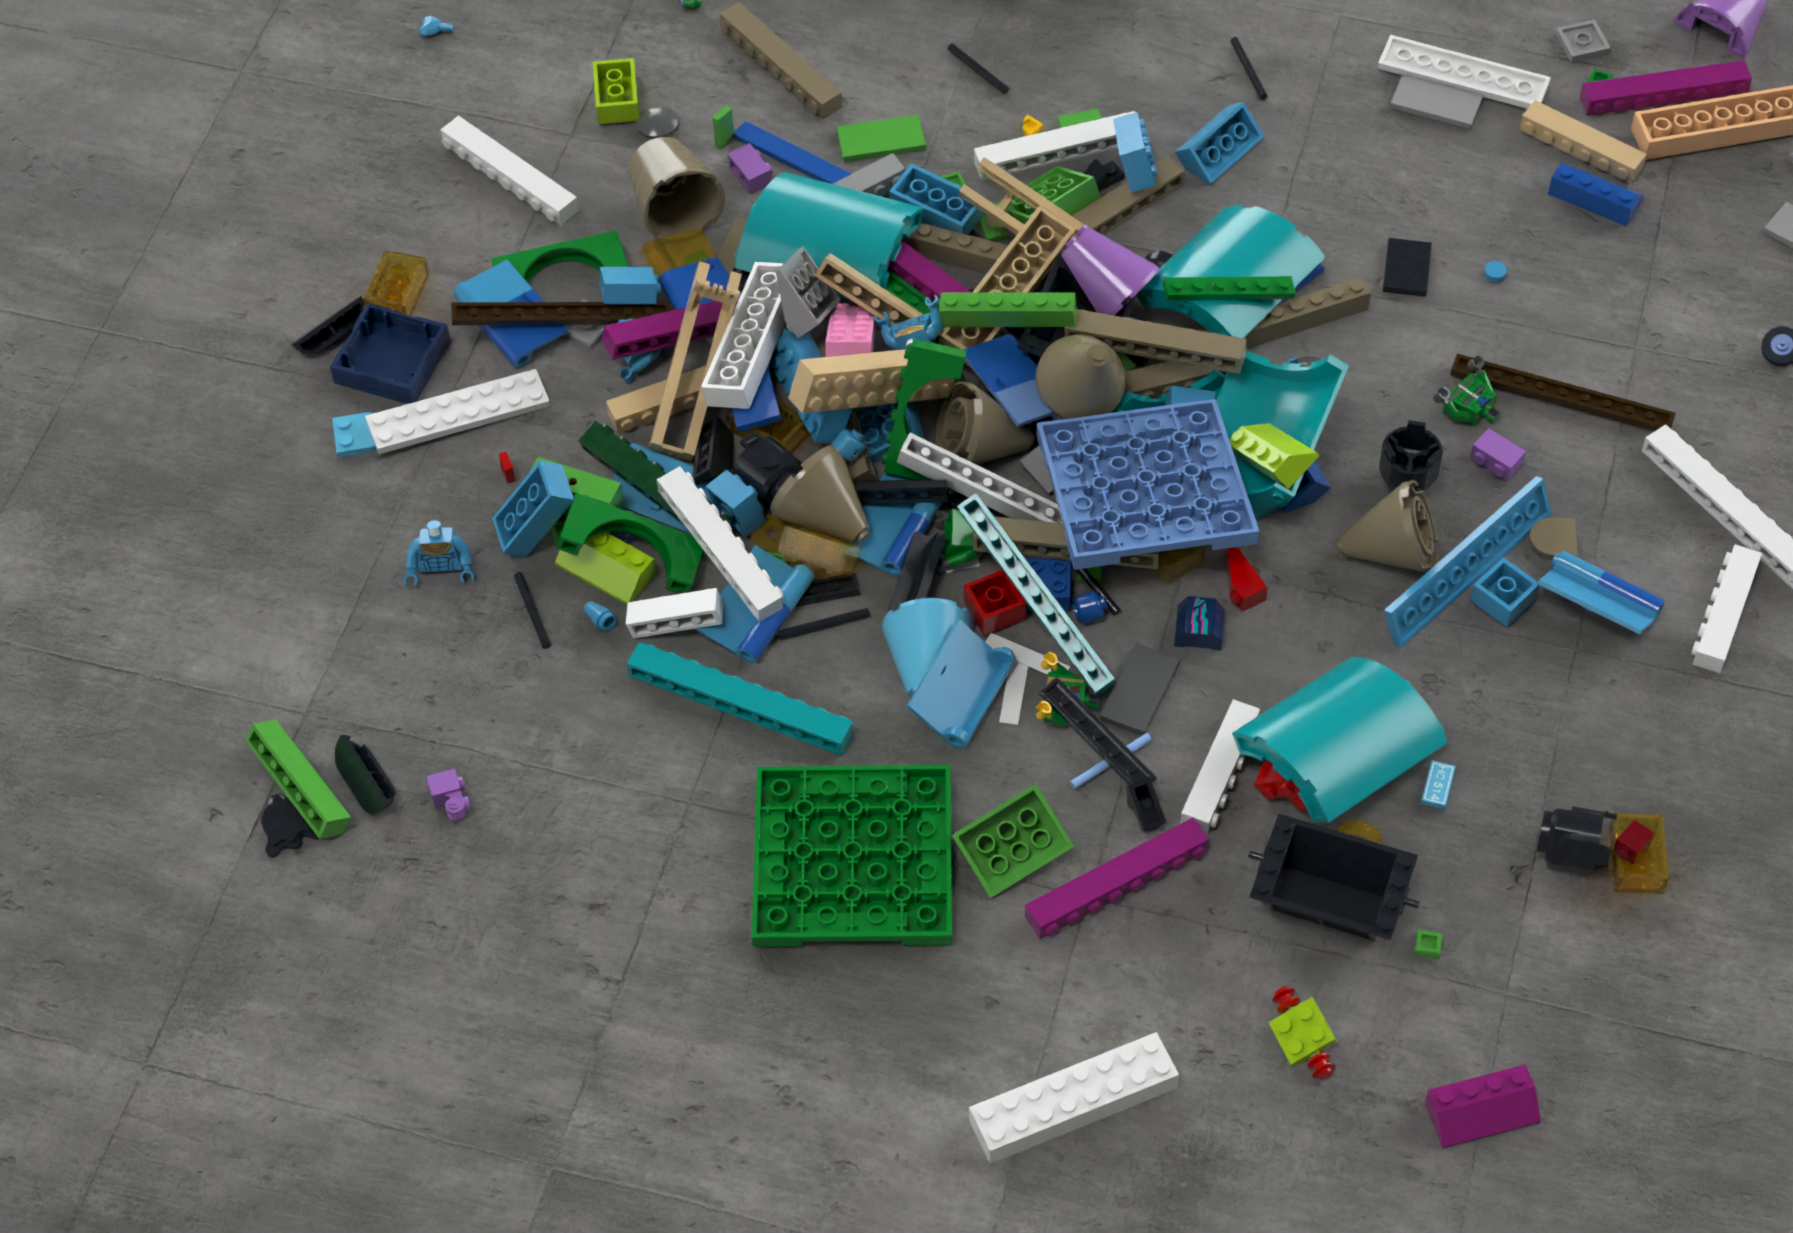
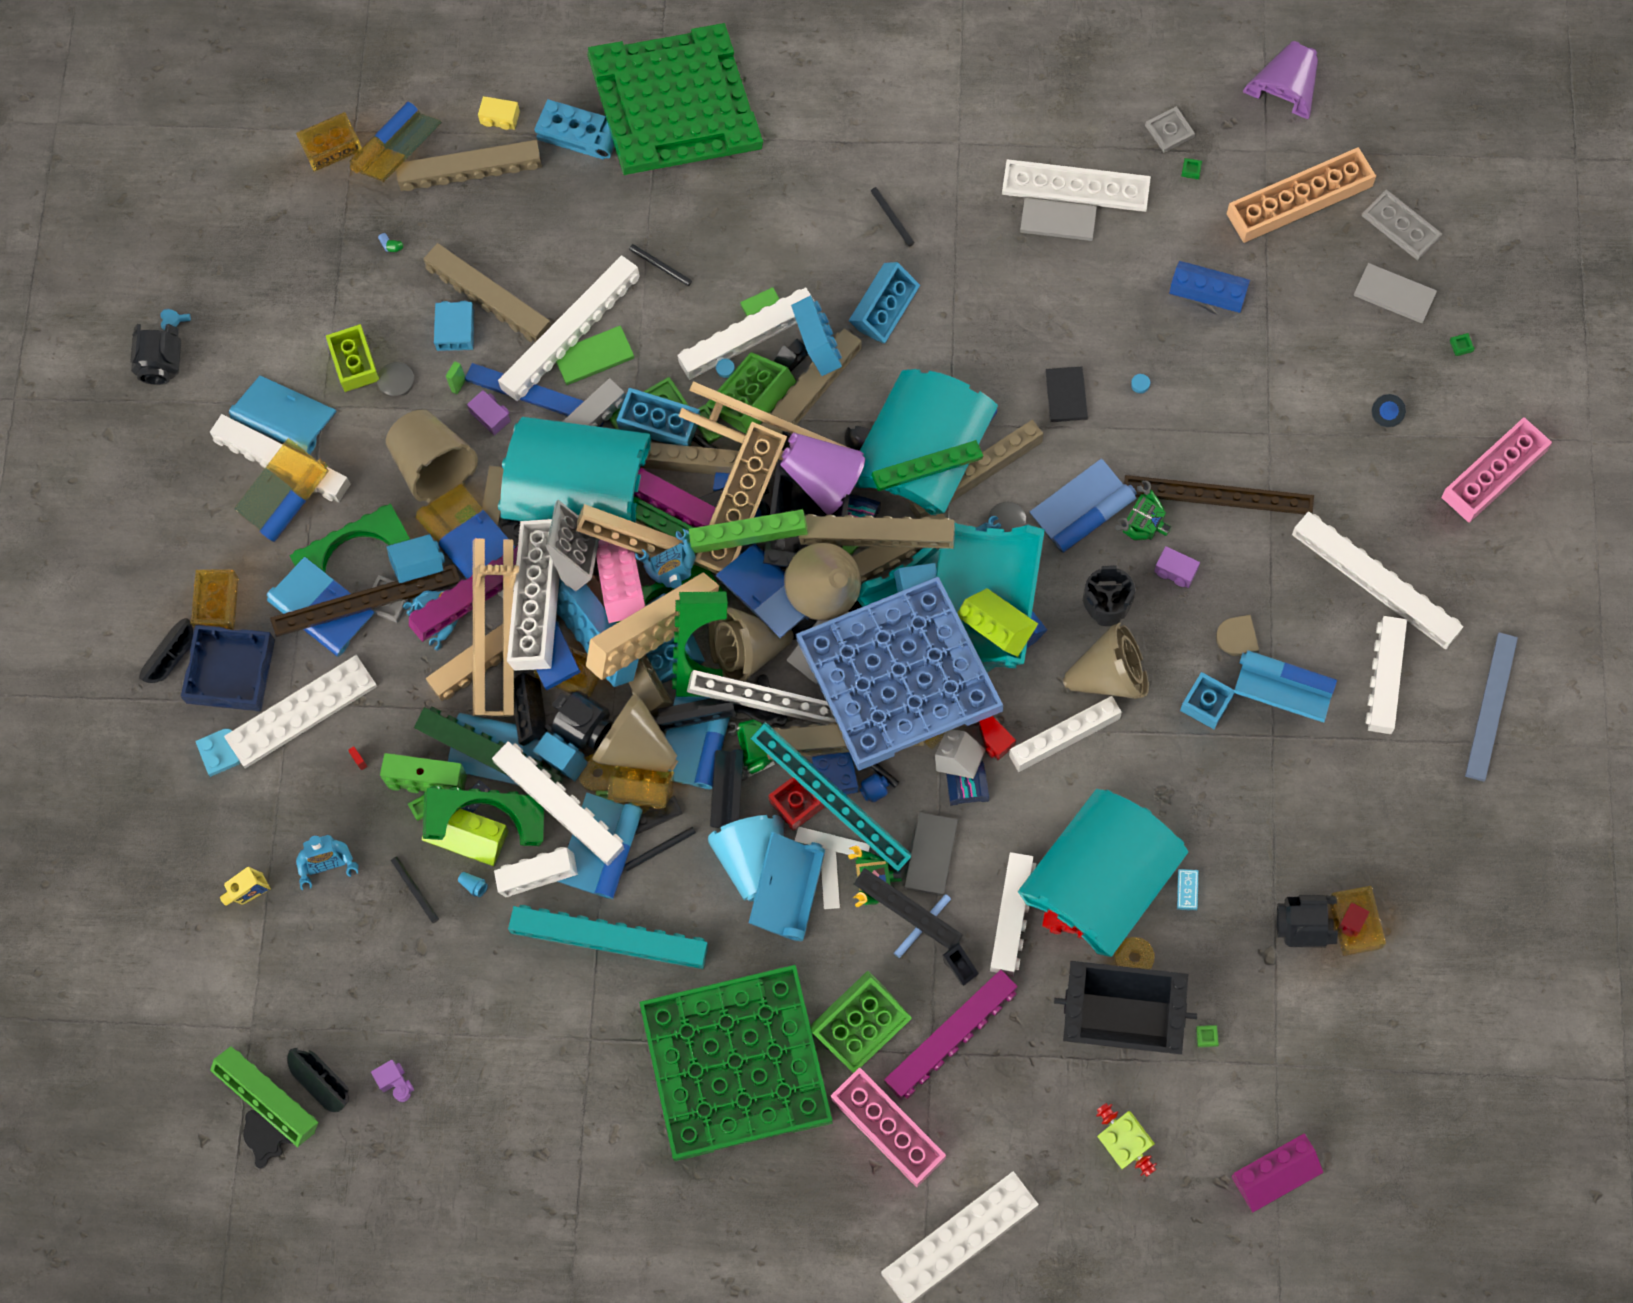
camera: 10 degrees left, 15 degrees up
(342, 566) = (245, 887): none -> light yellow torso
(405, 48) = (155, 354): none -> black piece
(501, 196) = (281, 489): none -> clear yellow door
(524, 131) = (281, 413): none -> dark azure door
(532, 509) = (393, 804): dark azure brick -> none
(735, 83) = (454, 326): none -> dark azure brick
(849, 444) = (642, 683): dark azure head -> none
(860, 105) = (569, 328): none -> white brick
(1017, 958) = (888, 1127): none -> bright pink brick
(1025, 174) = (725, 368): none -> dark azure tile
(1031, 126) = (720, 317): yellow tile -> none
(1196, 588) = (959, 754): none -> light grey slope
(1327, 595) = (1065, 734): none -> white brick
(1401, 374) = (1083, 505): none -> medium blue door
(1467, 562) = (1172, 679): dark azure plate -> none
(1583, 142) = (1189, 237): tan brick -> none
(1665, 87) = (1248, 167): magenta brick -> none

